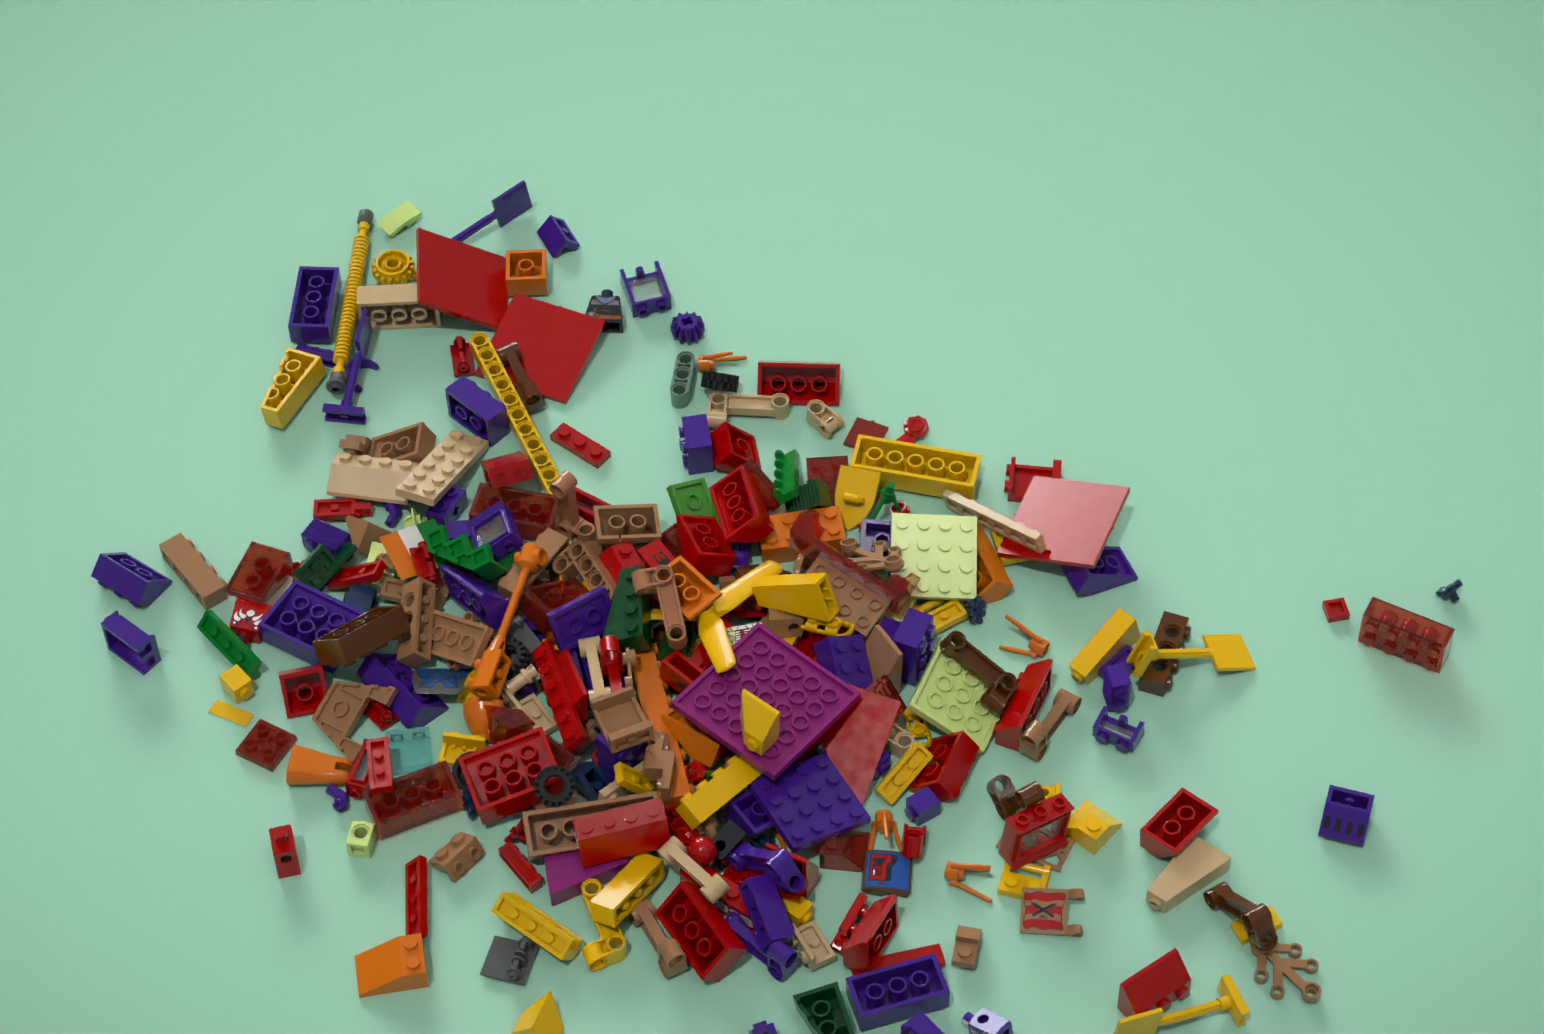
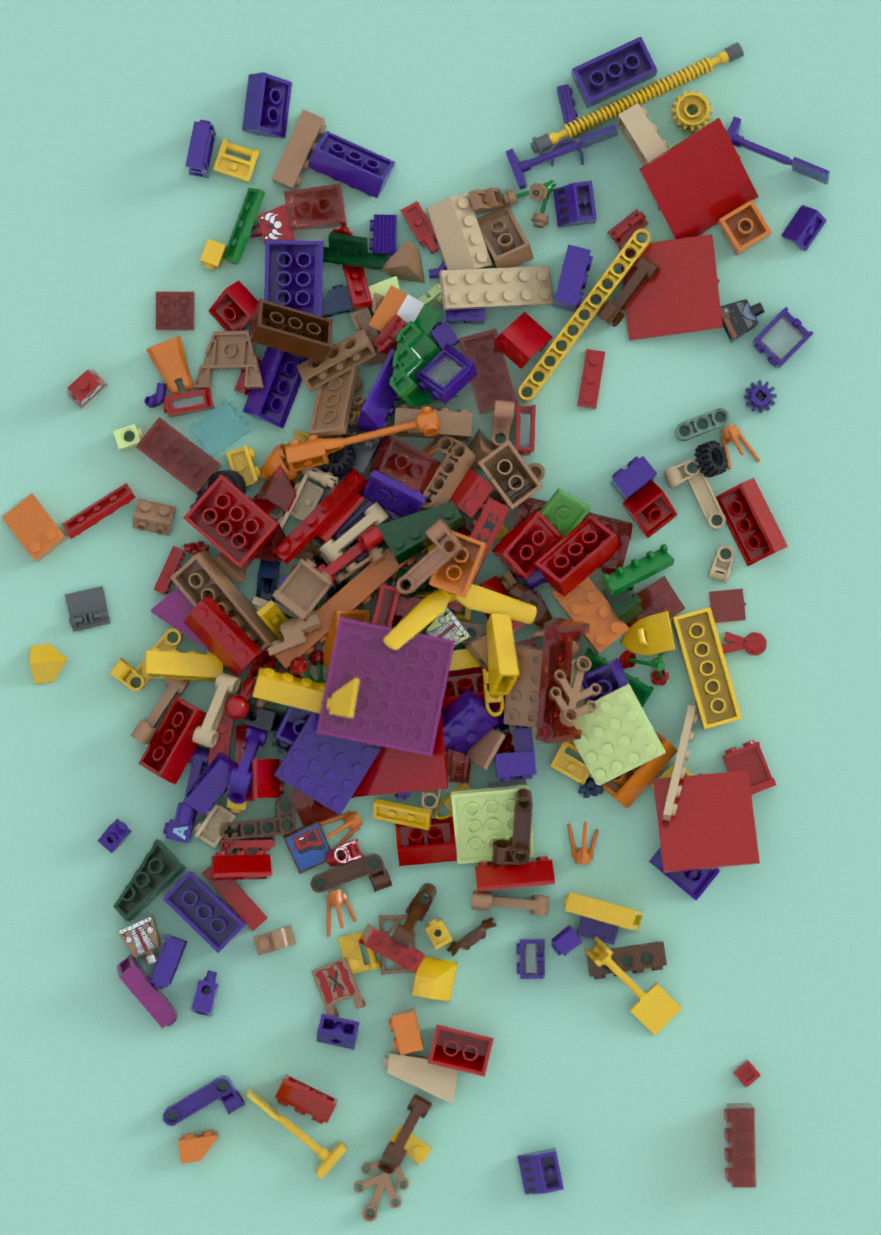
camera: 60 degrees right, 35 degrees up
(169, 628) = (235, 166): none -> yellow plate
(231, 713) = (190, 264): yellow sticker -> none
(235, 539) = (351, 164): none -> dark purple slope
(291, 386) = (518, 109): yellow wedge -> none
(379, 397) = (537, 192): none -> medium nougat plant
(379, 765) = (185, 418): red plate -> none
(403, 215) = (750, 81): yellowish green slope -> none
(411, 382) = (575, 204): none -> dark purple slope
(439, 680) = (294, 408): sticker -> none
(537, 926) = (120, 615): yellow brick -> none
(540, 786) = (236, 563): black tyre -> none
(797, 979) = (178, 831): none -> dark purple brick
(845, 883) = (256, 824): none -> reddish brown beam
(922, 806) = (380, 843): dark purple brick -> none
(952, 824) = (355, 869): none -> reddish brown piece
(1067, 770) = (472, 937): none -> reddish brown piece
(1097, 928) = (337, 1031): none -> dark purple brick
(1132, 863) = (407, 1031): none -> orange brick
(1450, 590) = (813, 1157): dark blue plant -> none

